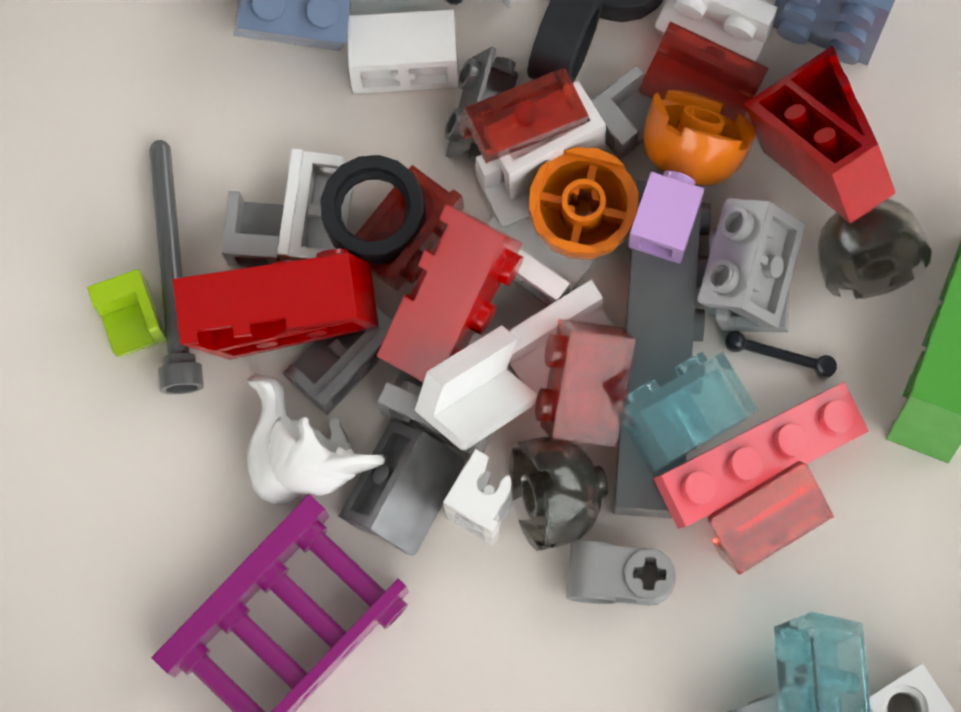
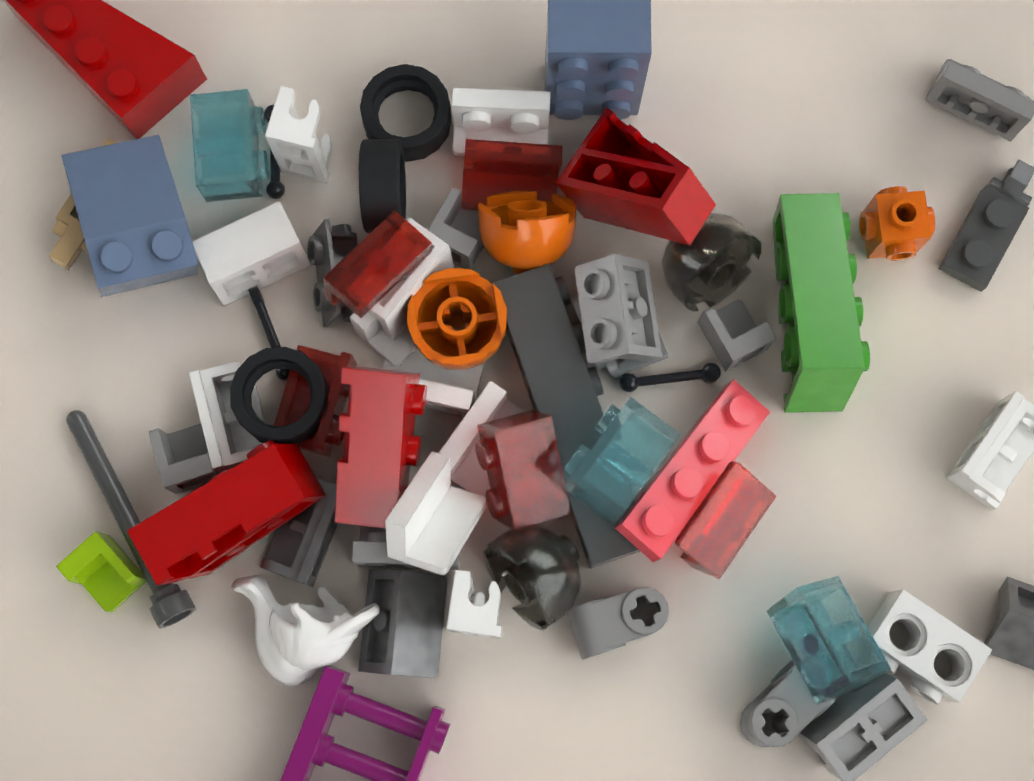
camera: 30 degrees left, 0 degrees up
(389, 133) = (259, 304): none -> black hinge
(666, 215) = (532, 300): lavender brick -> none
(867, 336) = (735, 334): none -> light grey panel

